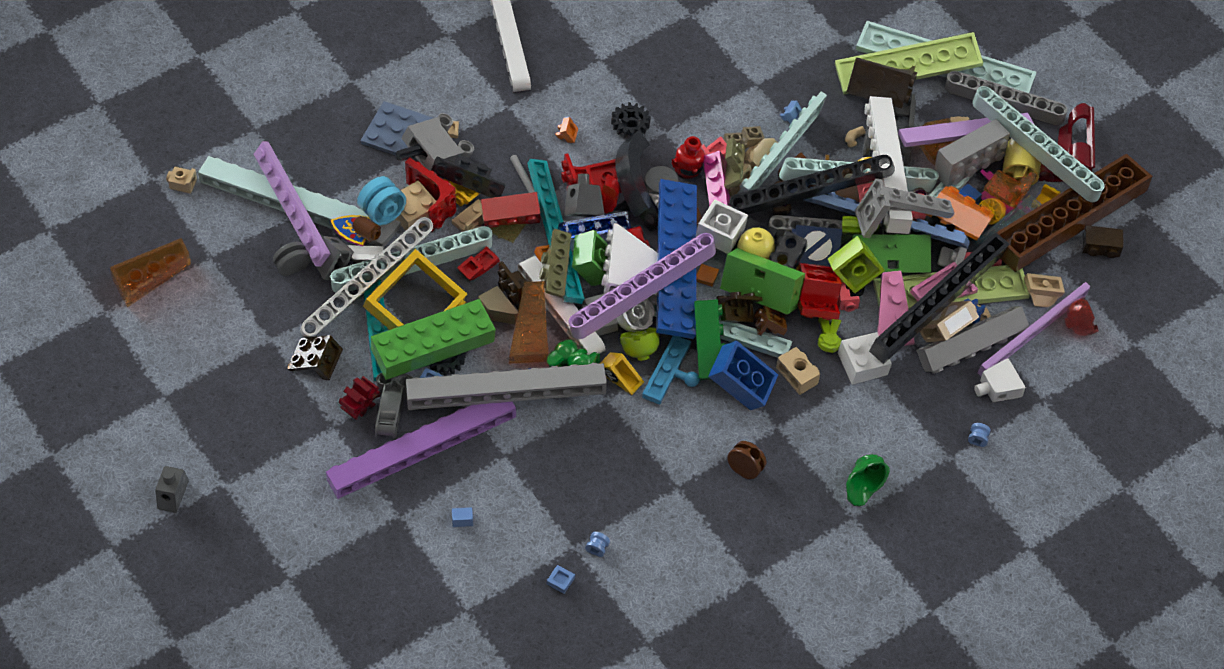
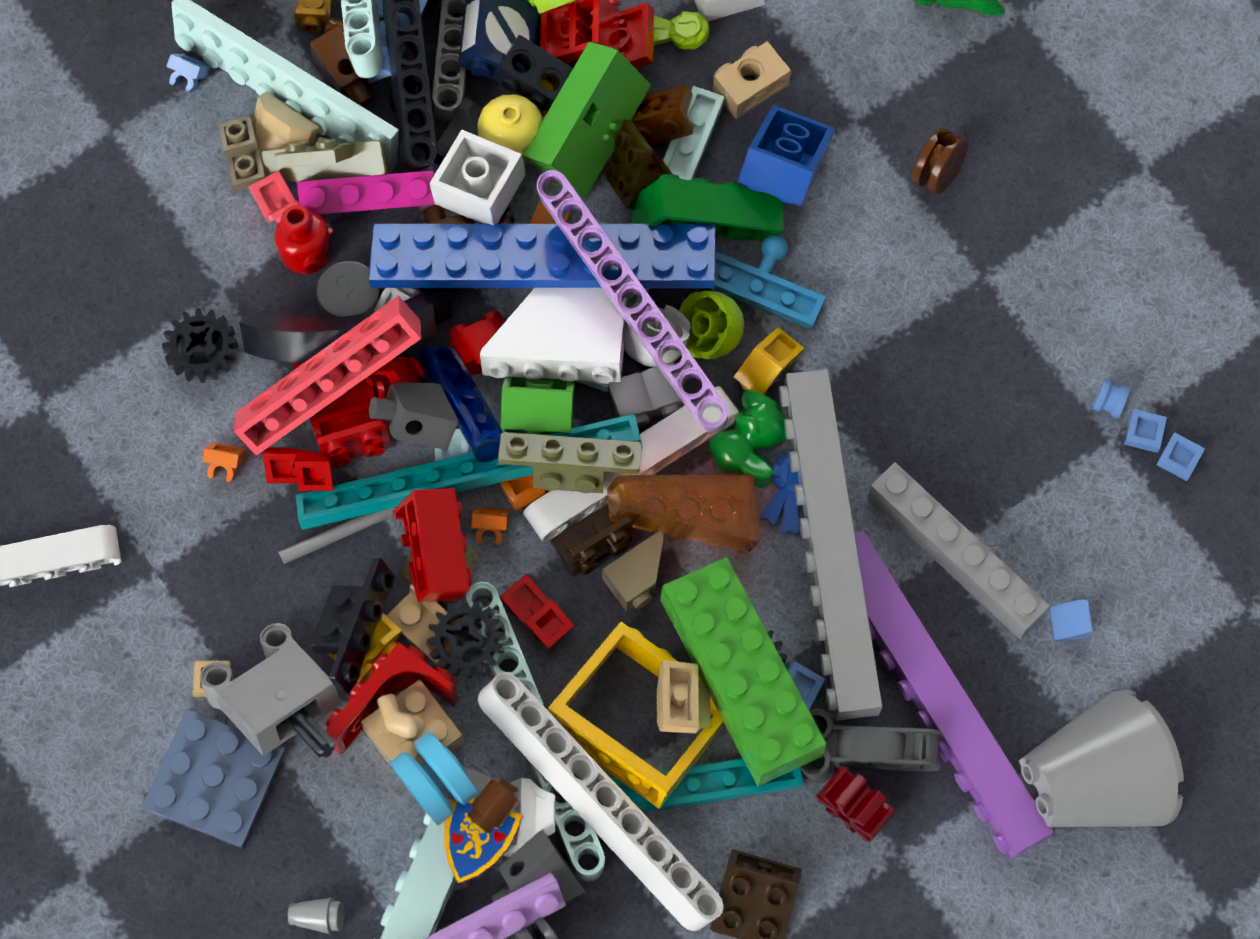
camera: 90 degrees left, 15 degrees up
(322, 172) = (318, 915): none -> light grey cone
(370, 515) = (1108, 767): none -> light grey cone
(416, 188) = (399, 722): none -> tan arm
(416, 308) = (681, 699): none -> tan slope
(458, 221) = (470, 625): none -> black gear
(503, 458) = (958, 551): none -> light grey brick
(529, 243) = (490, 519): none -> orange tile
(555, 162) = (298, 466): none -> red slope
(577, 561) = (1145, 430): none -> medium blue plate
(604, 159) = (327, 375): none -> coral brick

